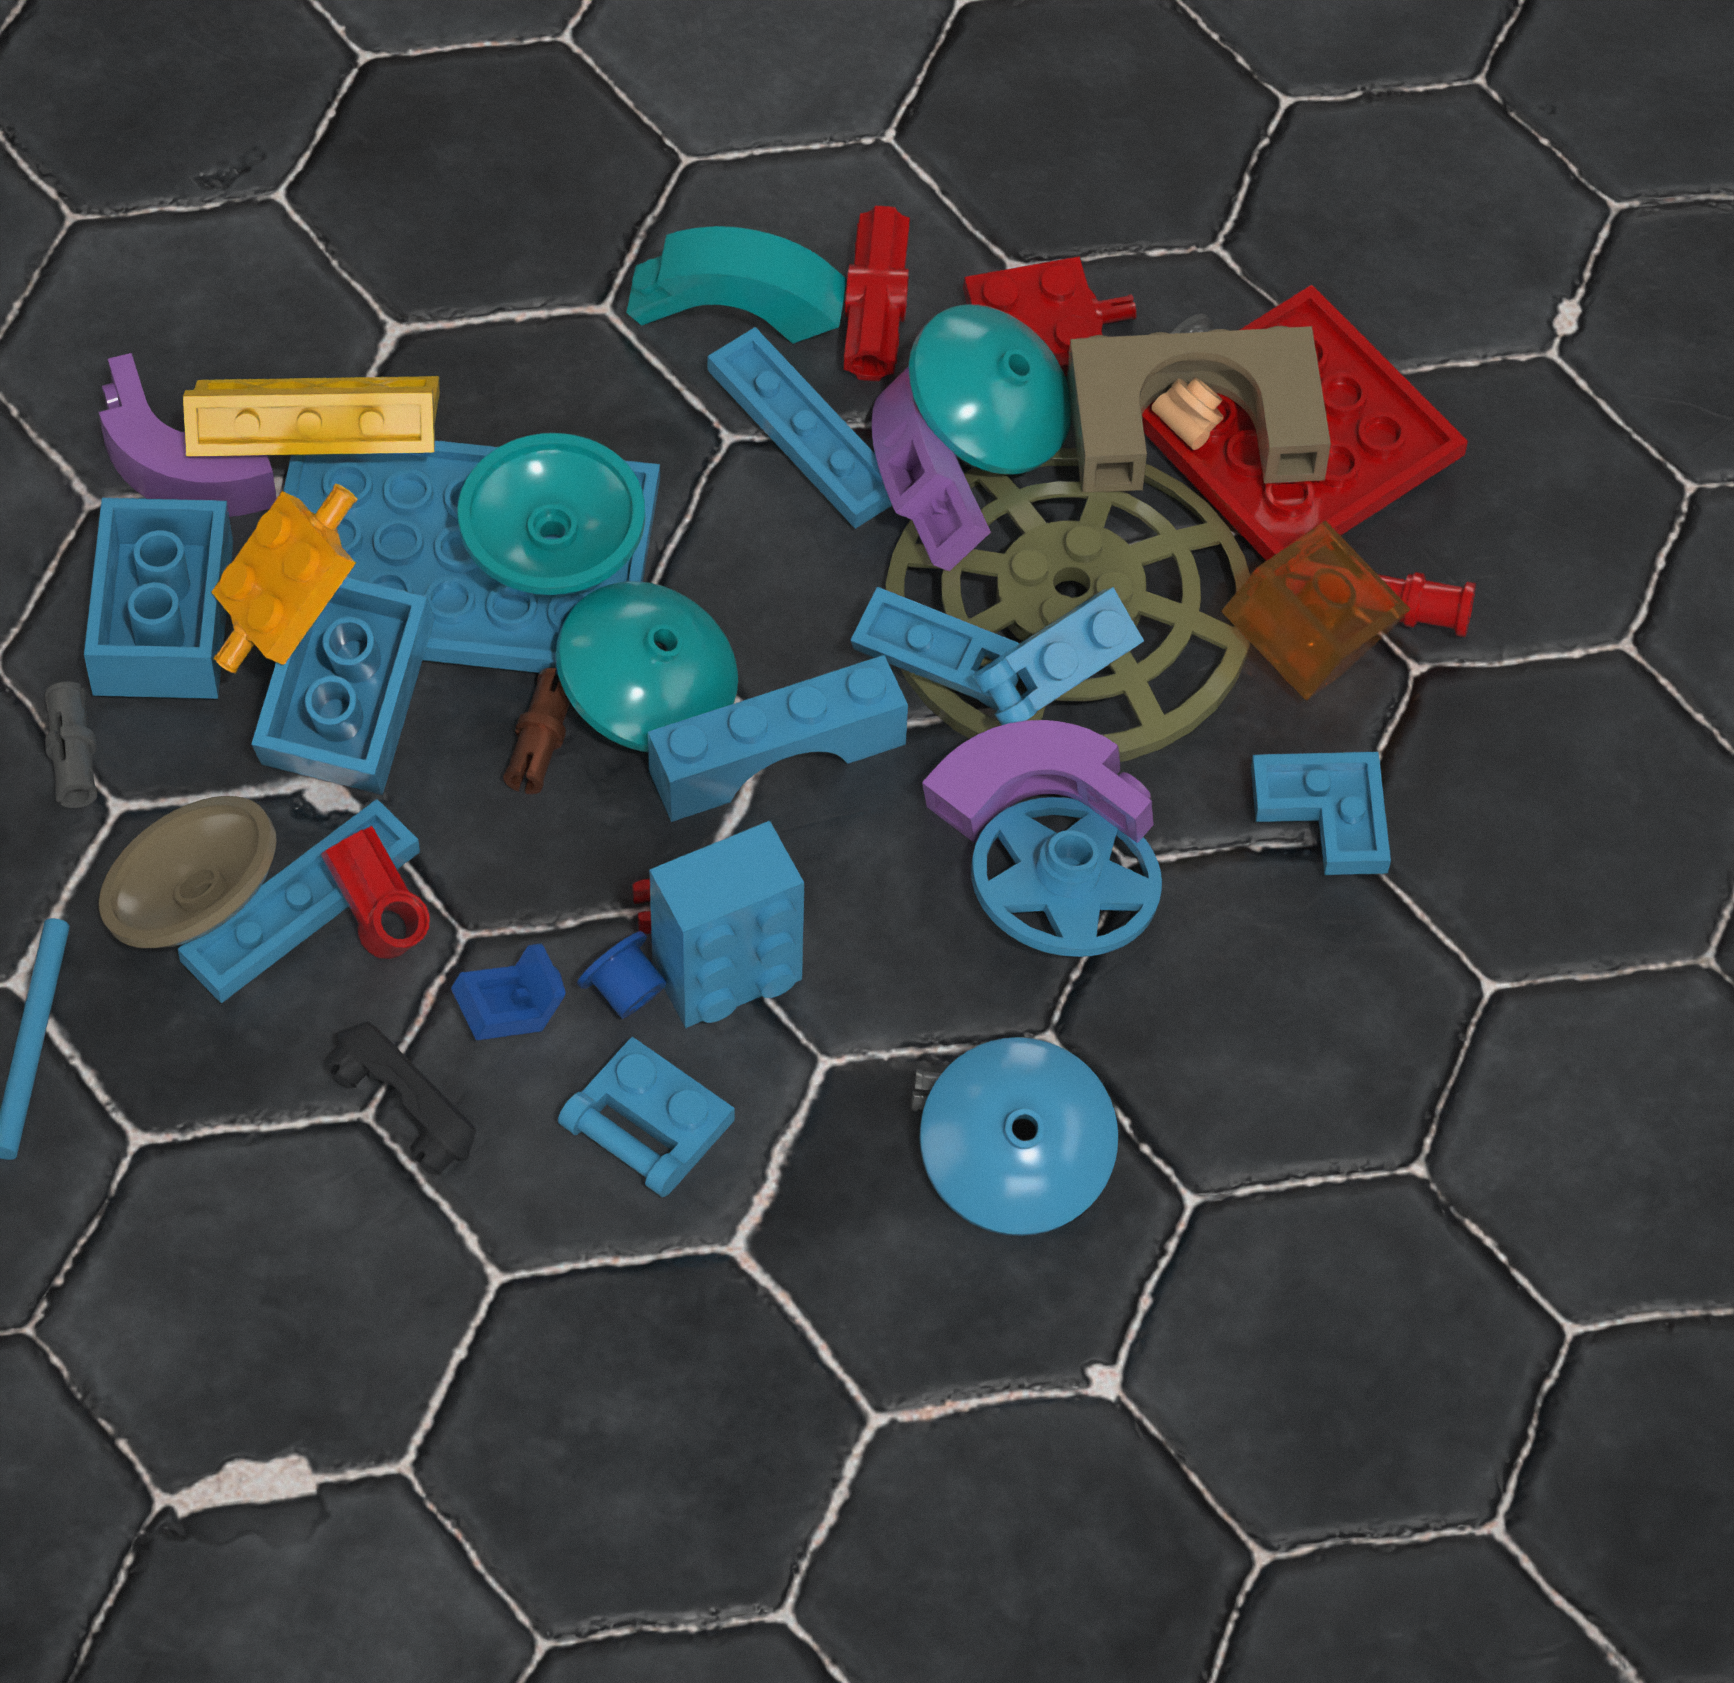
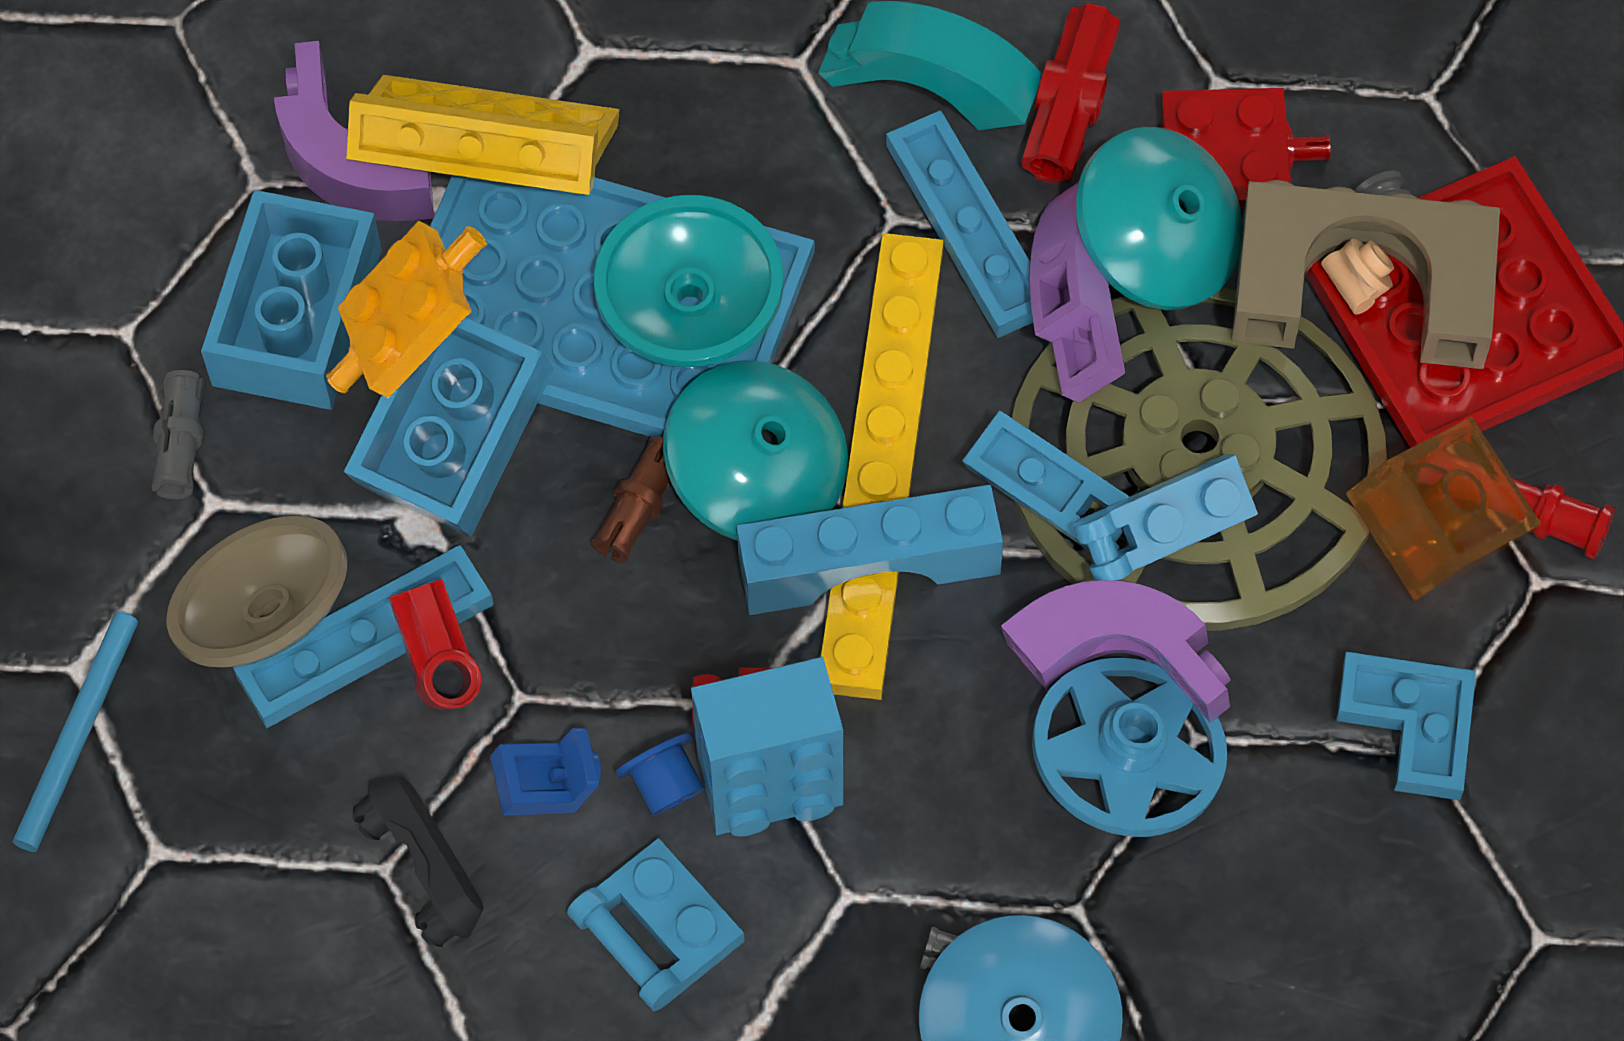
camera: 15 degrees right, 5 degrees up
(768, 633) = (883, 451): none -> yellow plate

